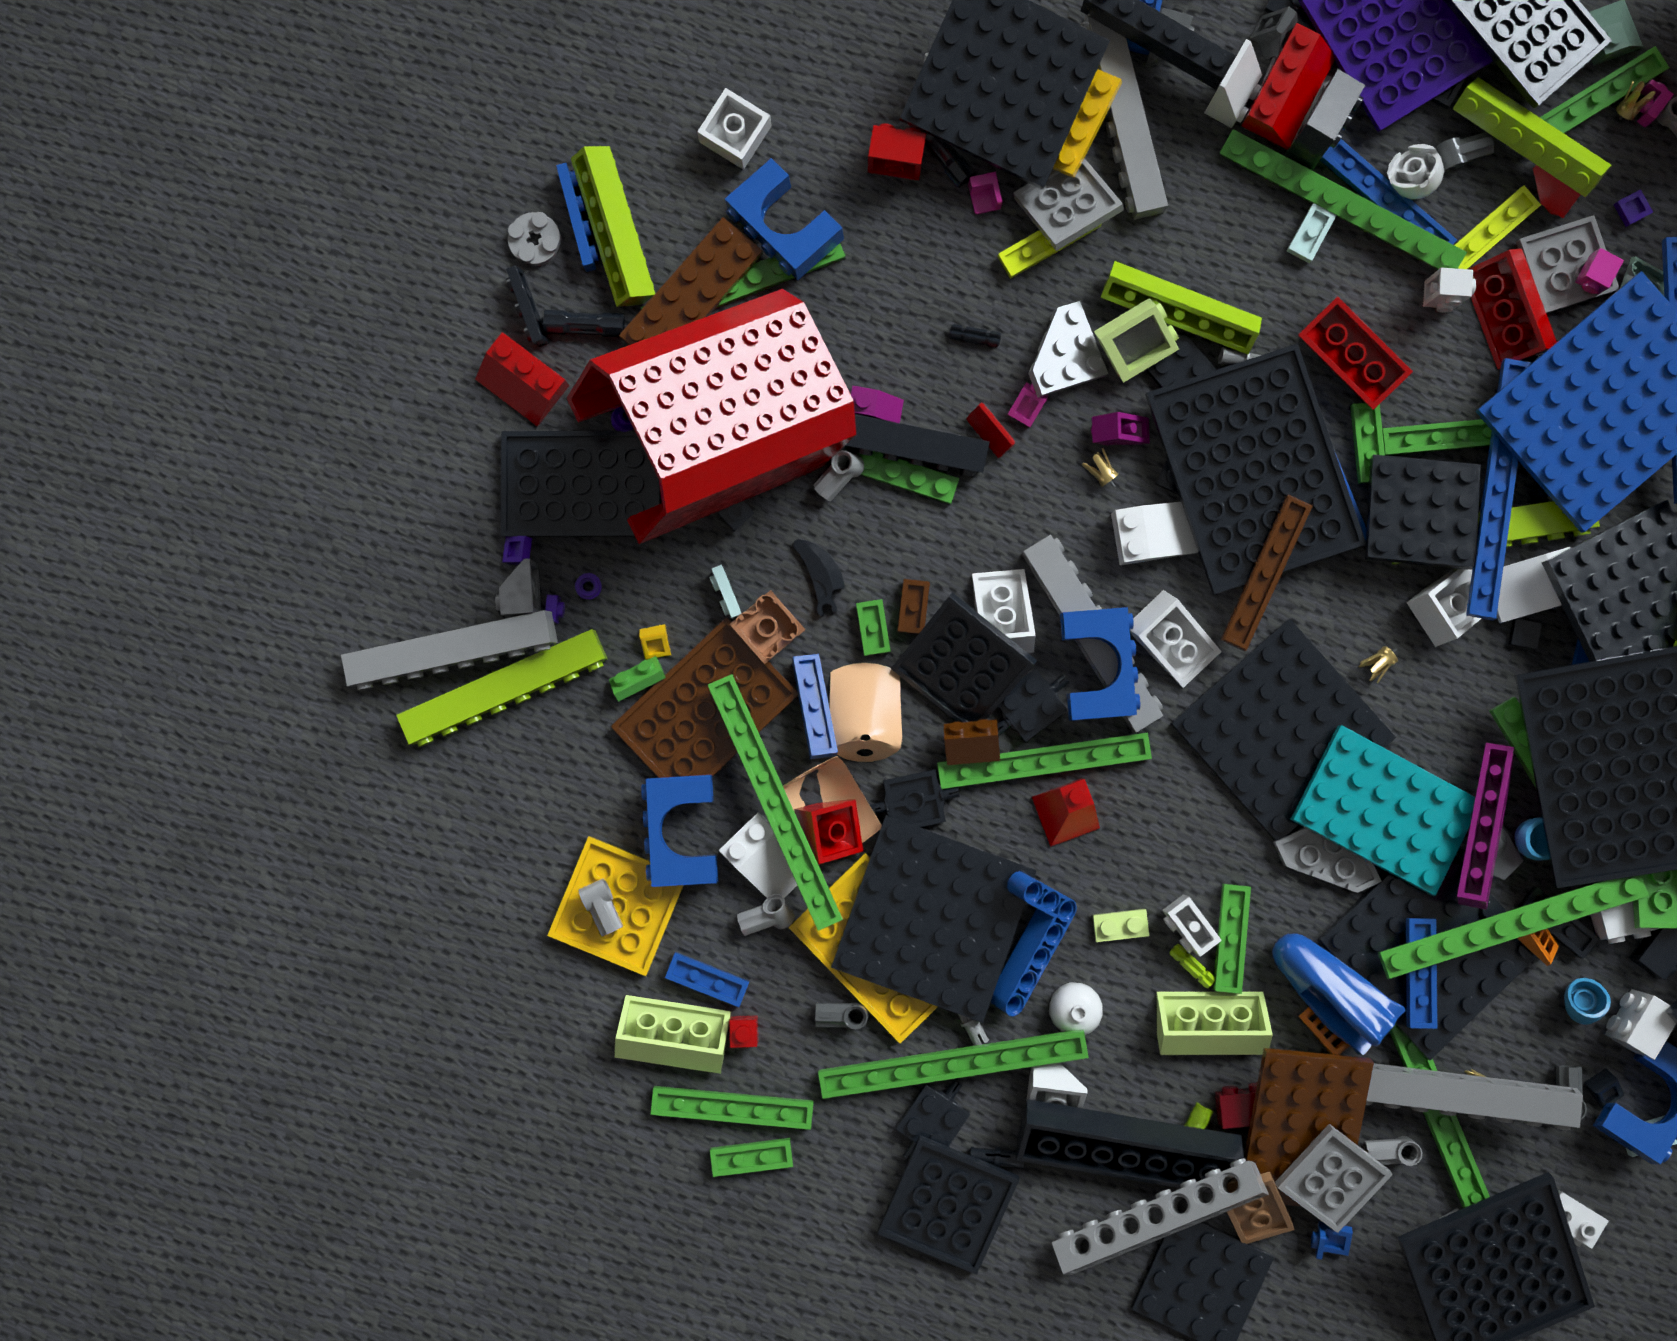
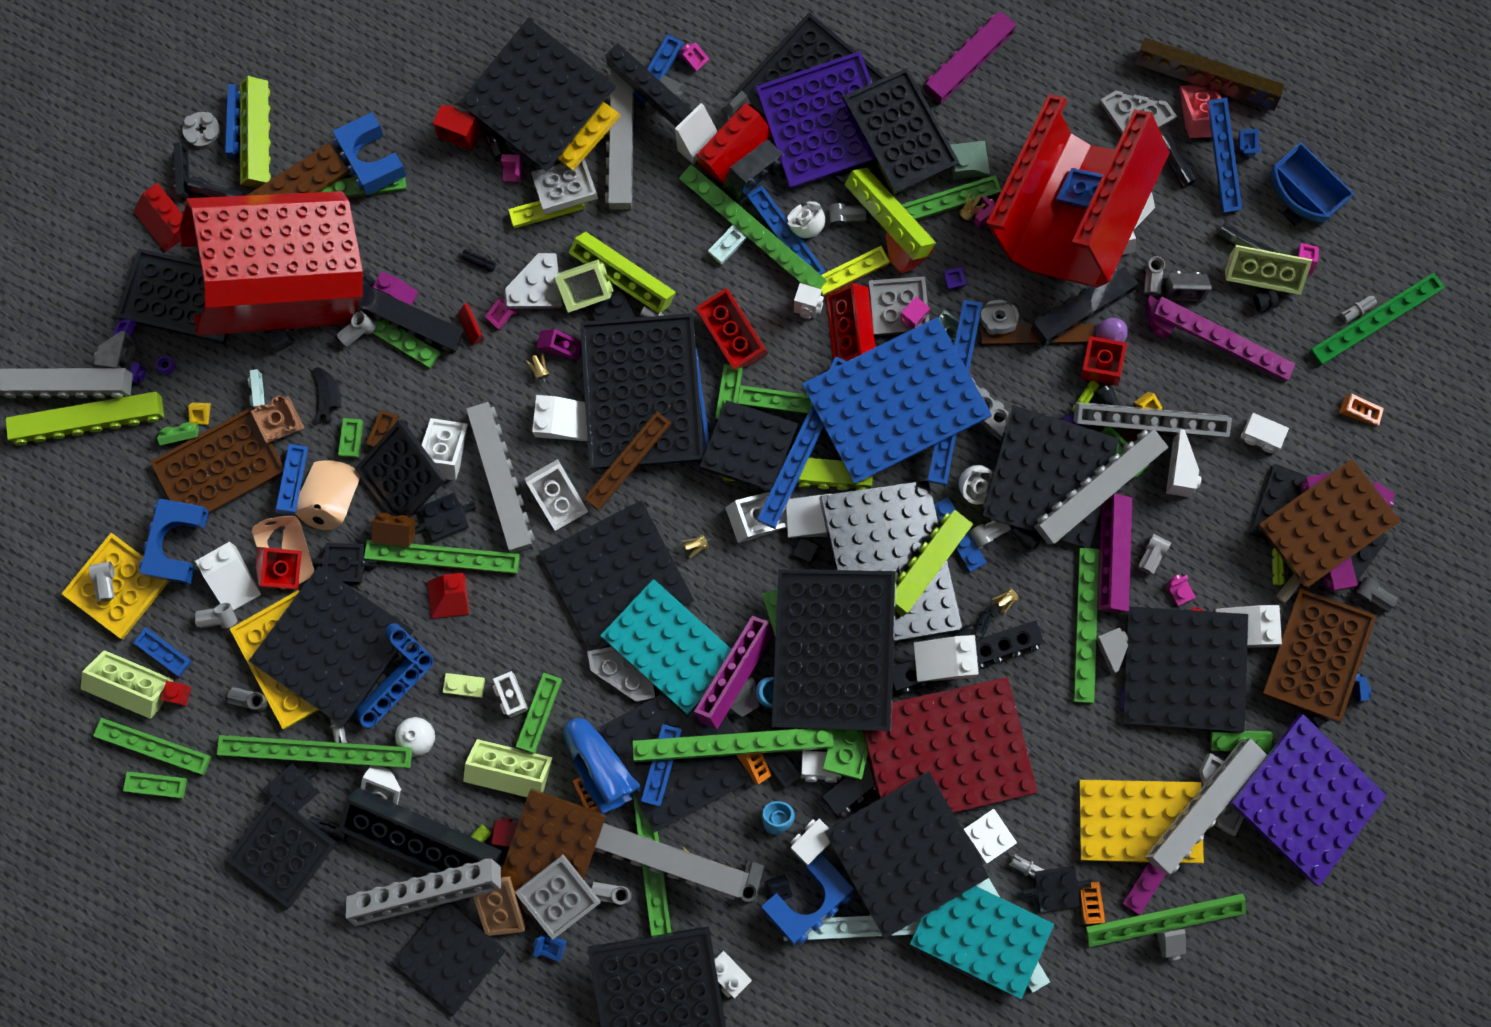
camera: 15 degrees right, 10 degrees down
(734, 128) = (354, 88): white brick -> none
(775, 802) = (242, 537): bright green plate -> none
(1112, 628) = (498, 521): blue arch -> none
(1193, 966) = (506, 726): lime axle -> none

